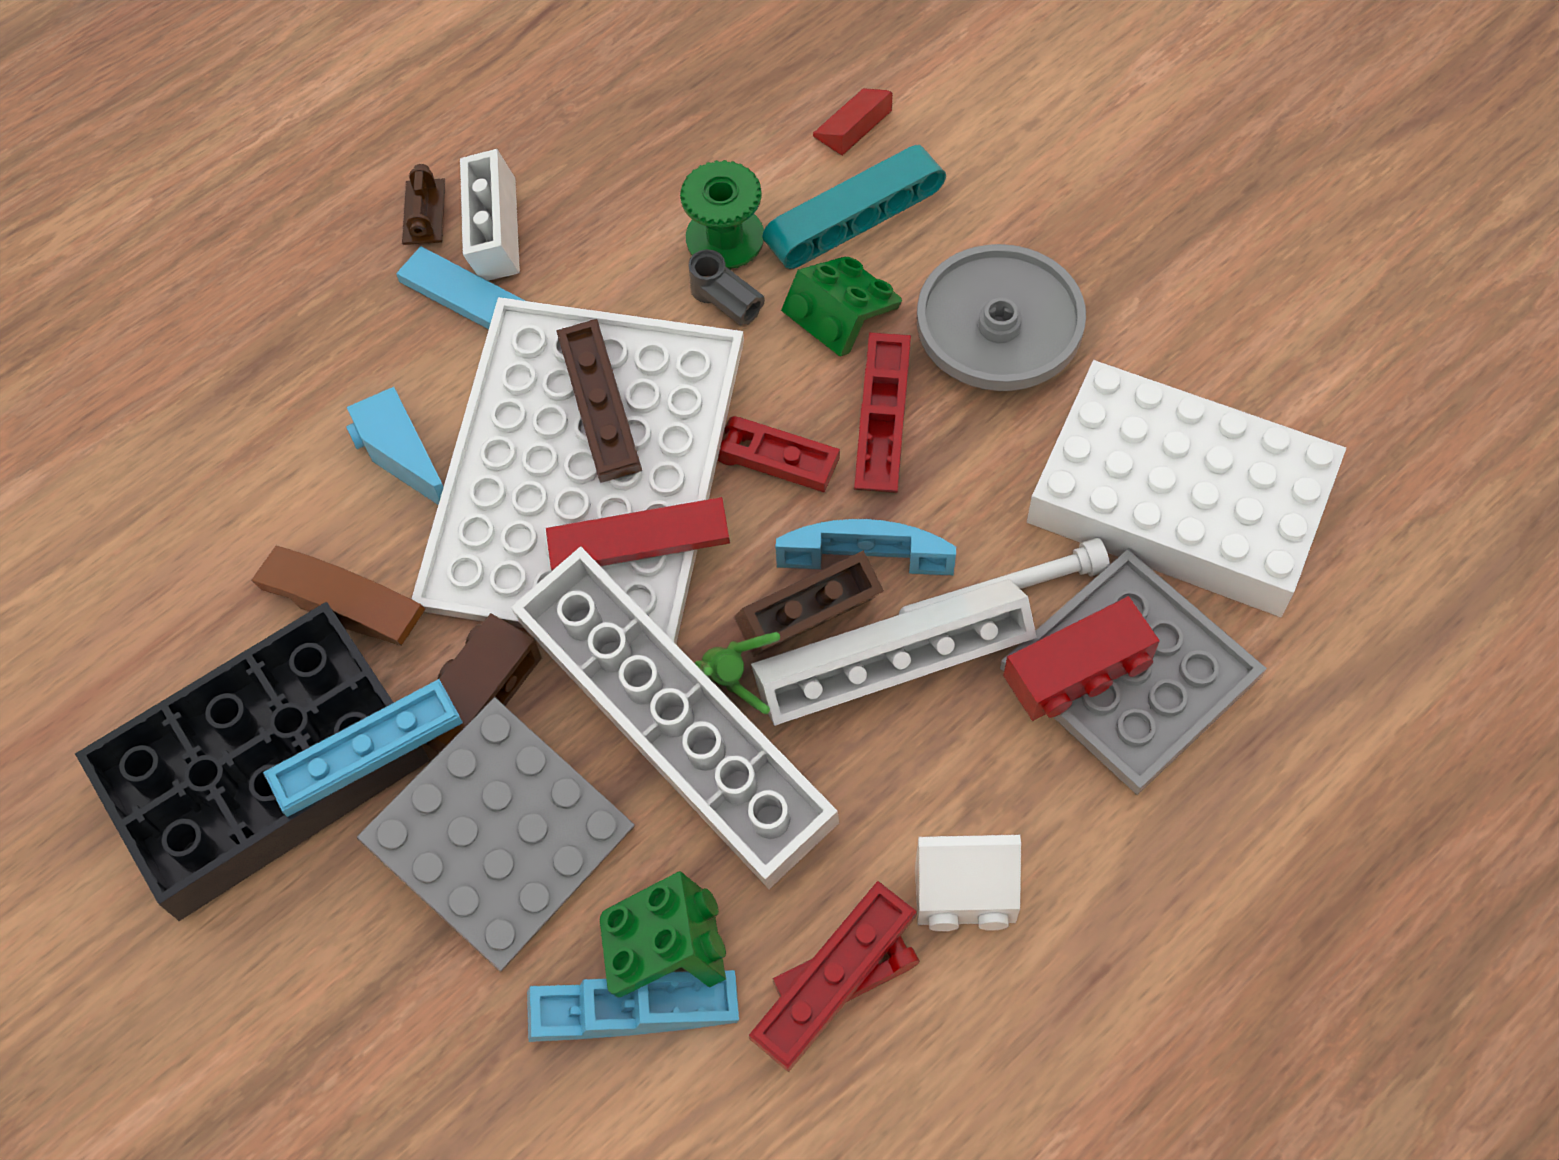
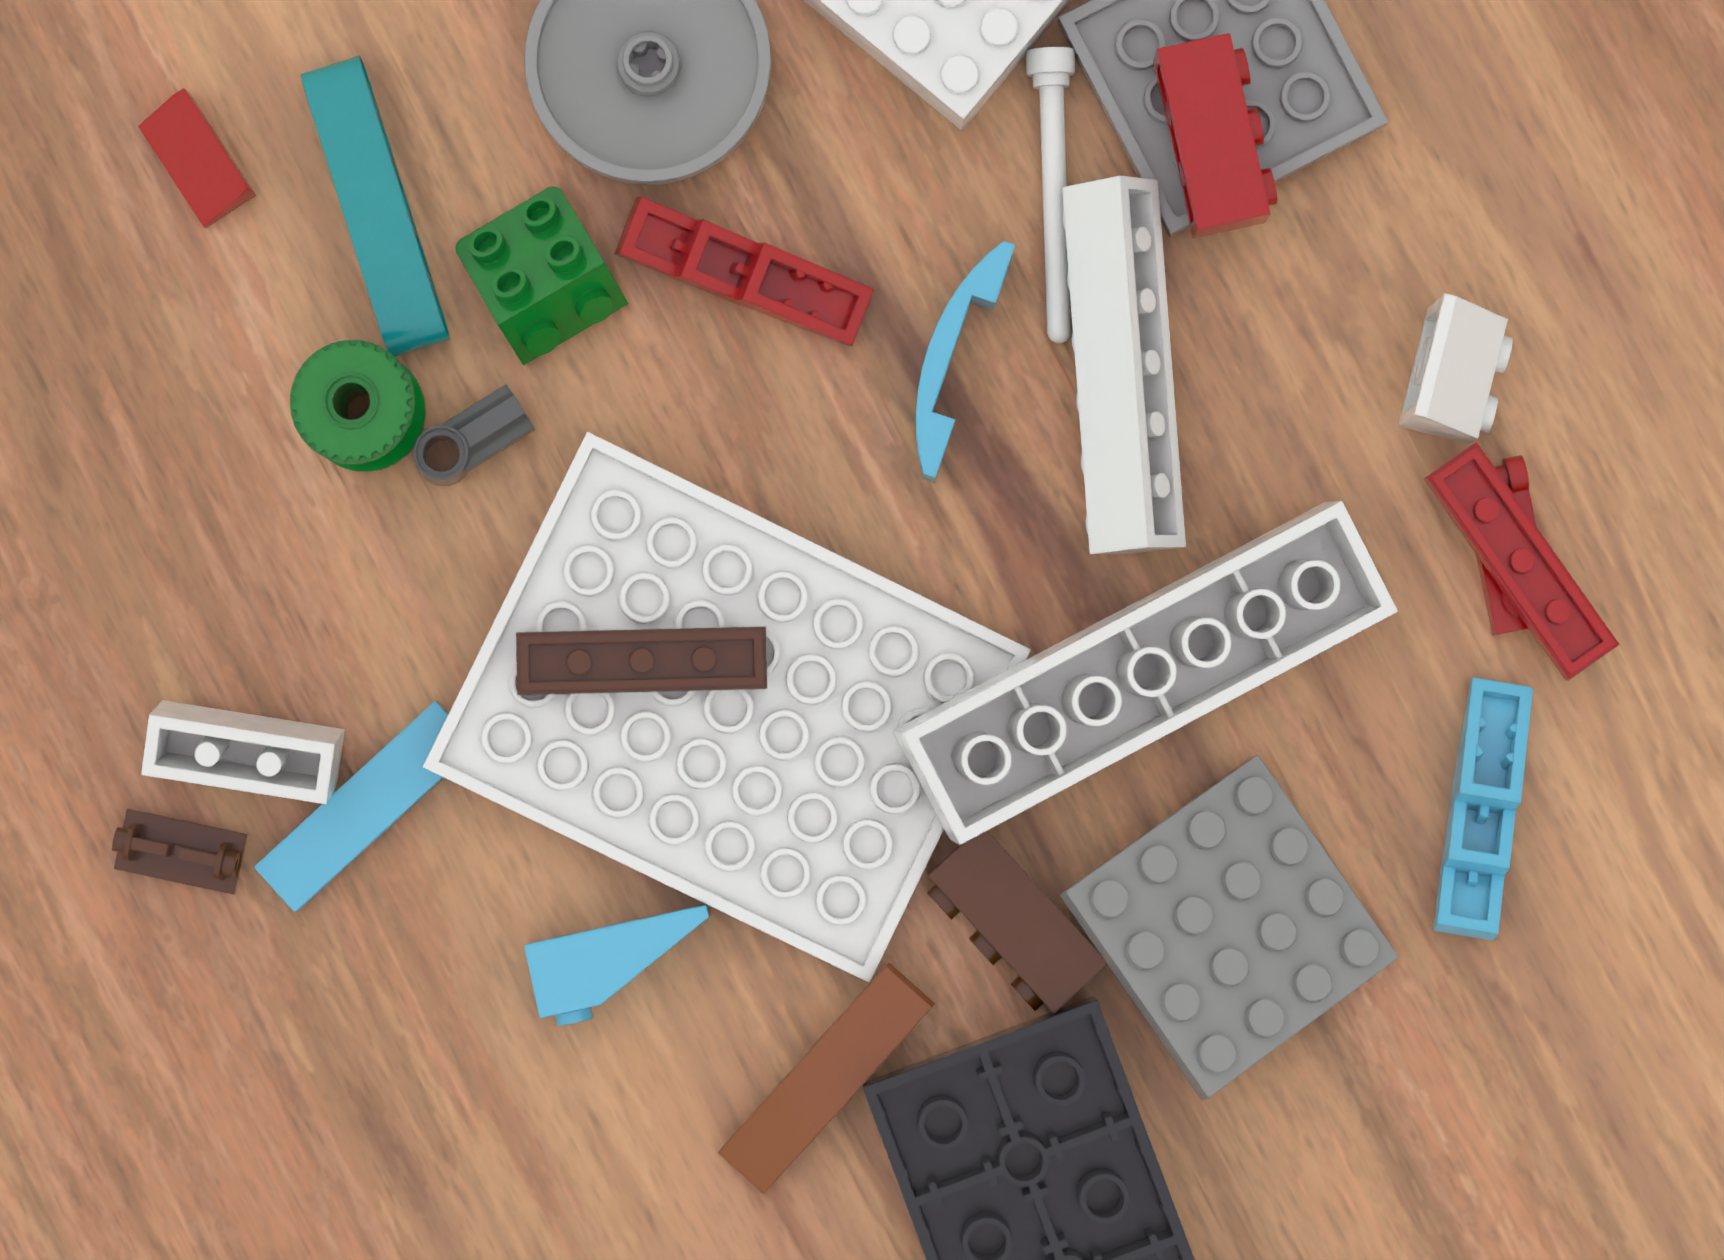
camera: 75 degrees left, 25 degrees up
(362, 748) = (1095, 1069): medium azure tile -> none
(642, 533) = (867, 656): red tile -> none
(660, 932) = (1421, 754): green bracket -> none
(726, 667) = (1078, 589): bright green plant -> none
(778, 453) = (772, 431): red plate -> none
(810, 601) = (1027, 456): reddish brown brick -> none

